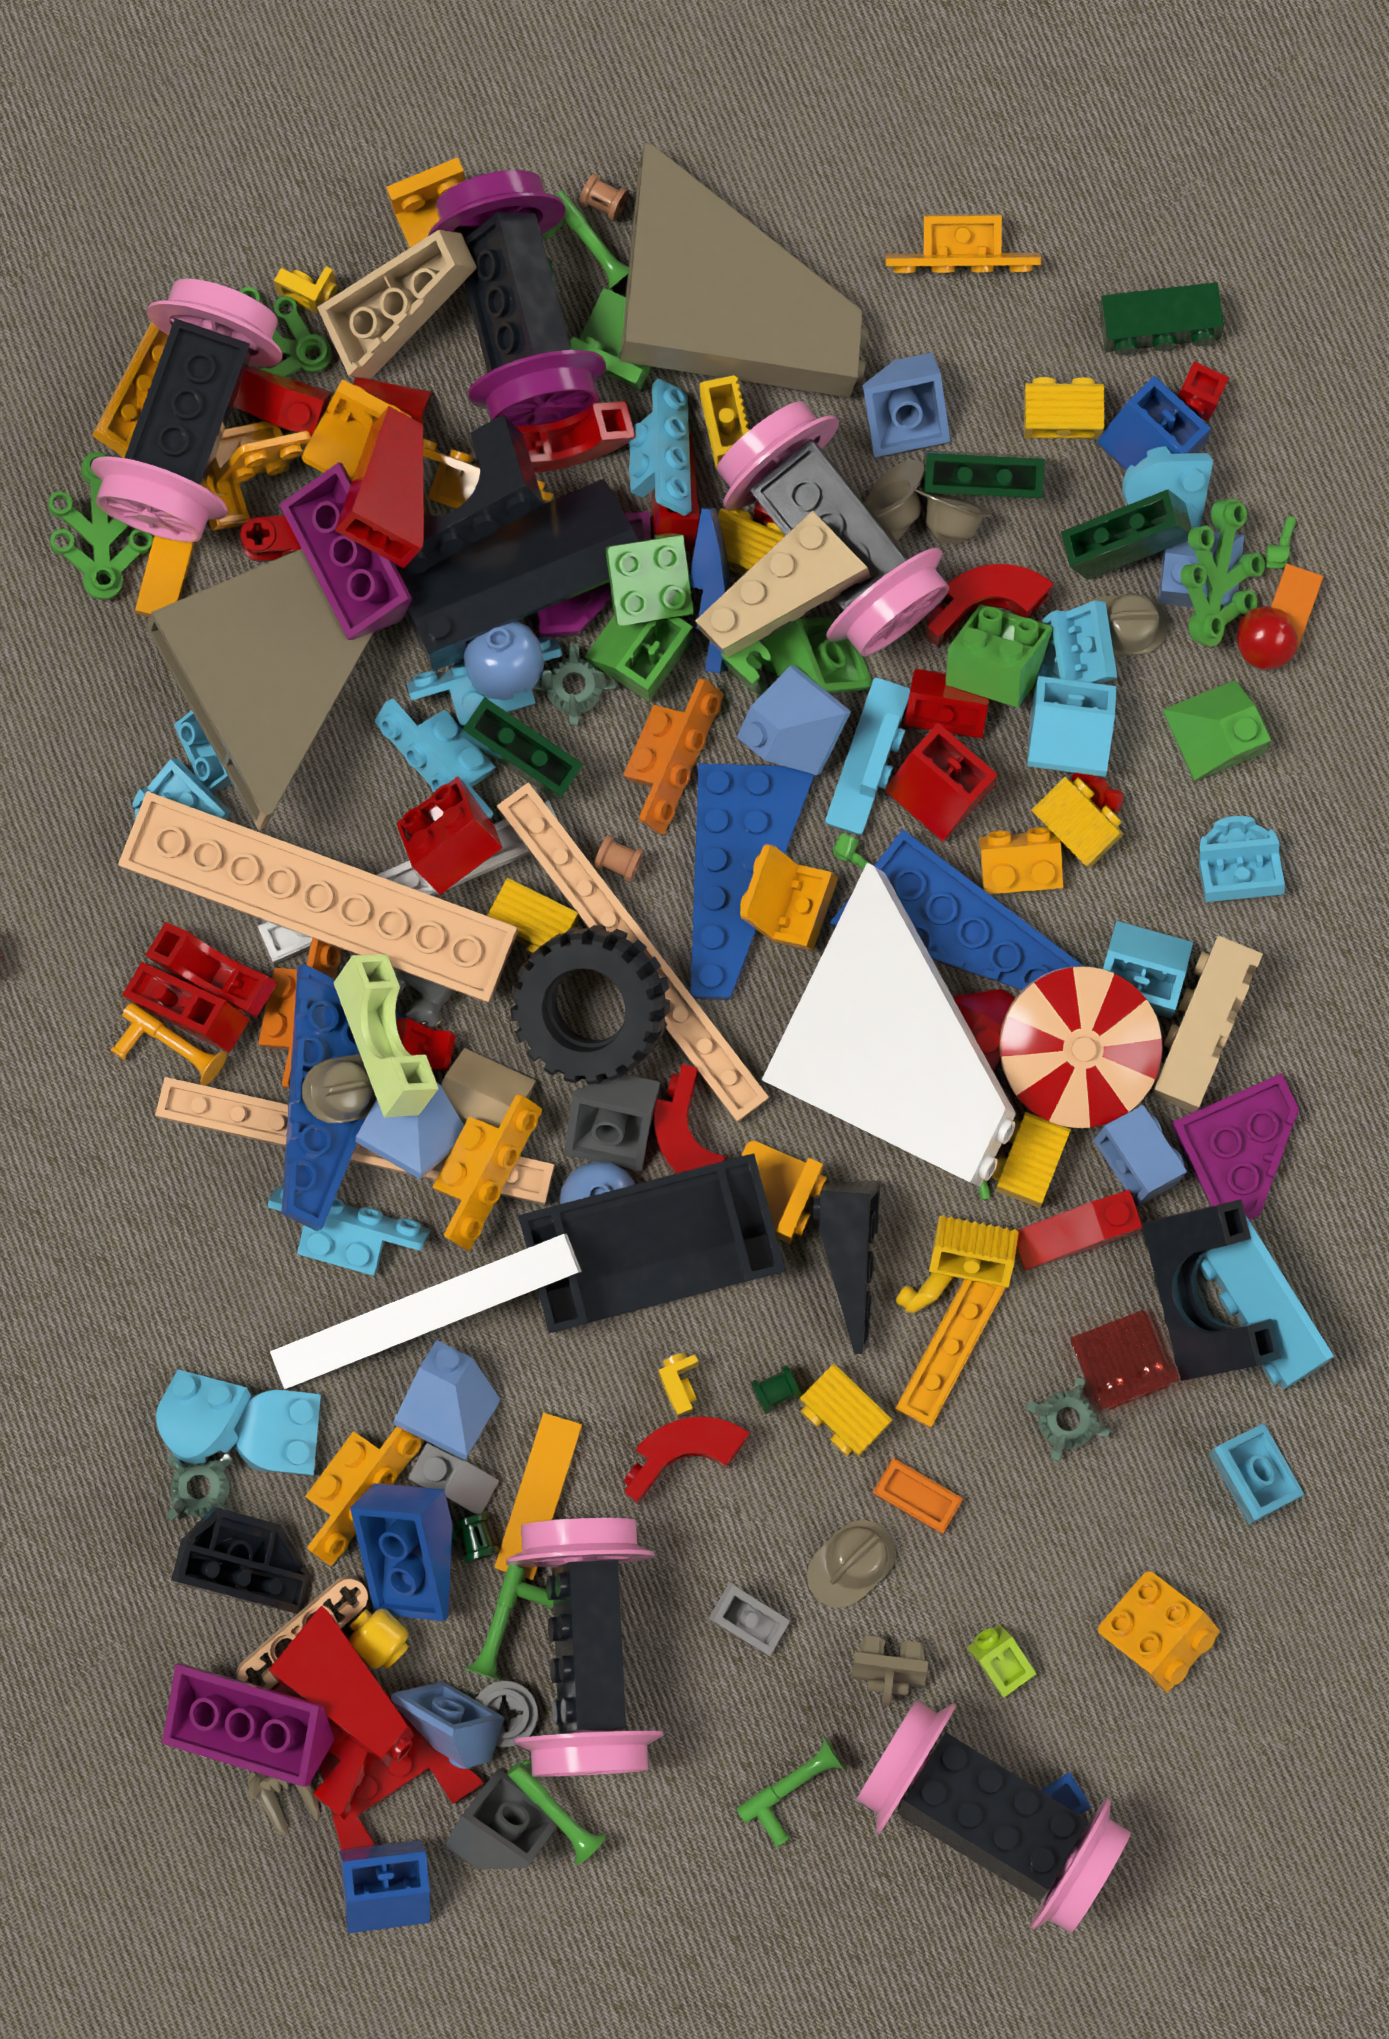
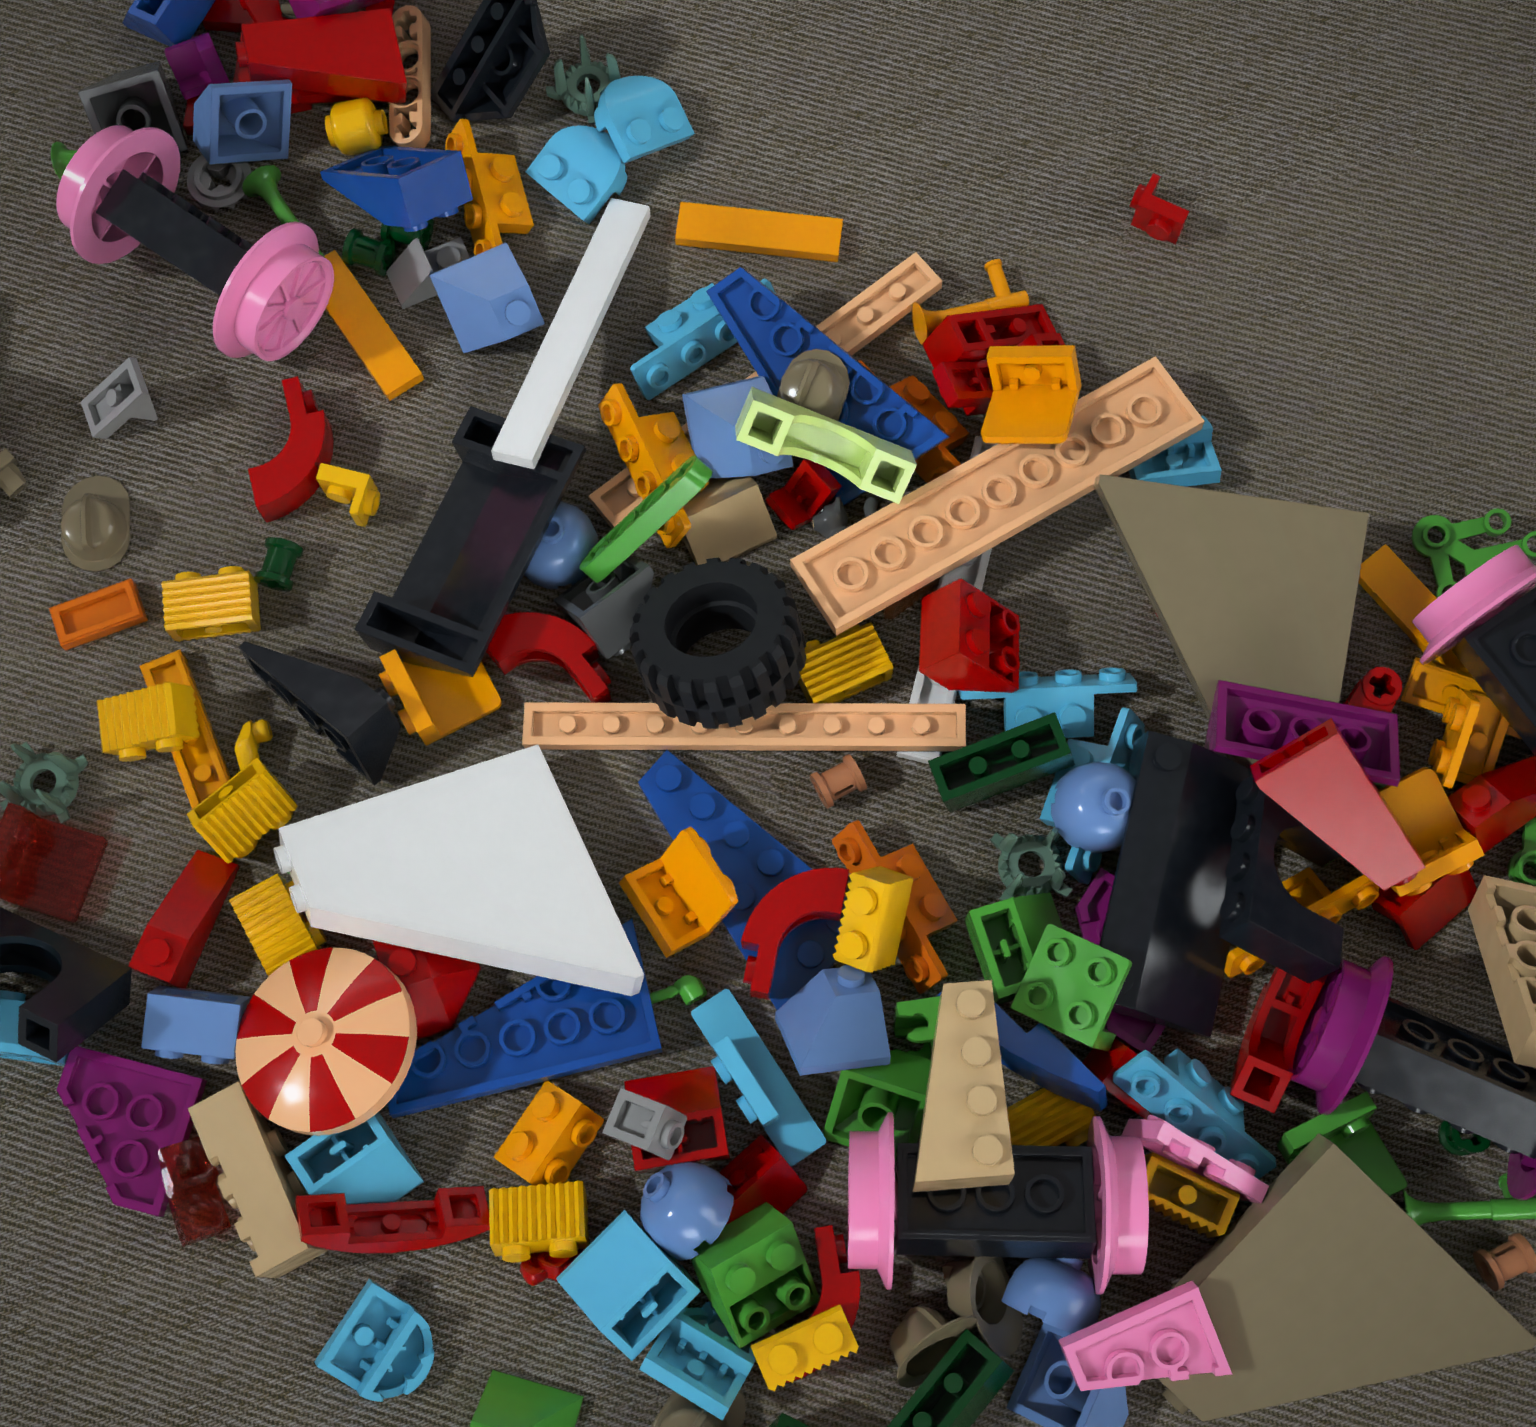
camera: 125 degrees right, 5 degrees down
(224, 1254) = (759, 231): none -> light orange tile
(228, 922) = (1031, 394): none -> light orange bracket
(426, 1811) = (195, 65): none -> magenta panel
(501, 1105) = (646, 519): none -> bright green beam
(698, 427) = (1196, 1156): none -> bright pink wing
(703, 749) = (873, 918): none -> yellow brick
(746, 816) = (791, 903): none -> red arch
(838, 368) = (1148, 1341): none -> bright pink wing
(857, 453) = (1054, 1292): none -> medium blue cylinder
(964, 786) = (645, 1124): none -> light grey bracket
(967, 1373) = (147, 720): none -> yellow brick
(994, 724) = (685, 1207): none -> medium blue cylinder
(1019, 579) = (804, 1347): none -> yellow brick
(1156, 908) = (392, 1226): none -> red slope
(1249, 1065) = (192, 1191): none -> clear red slope

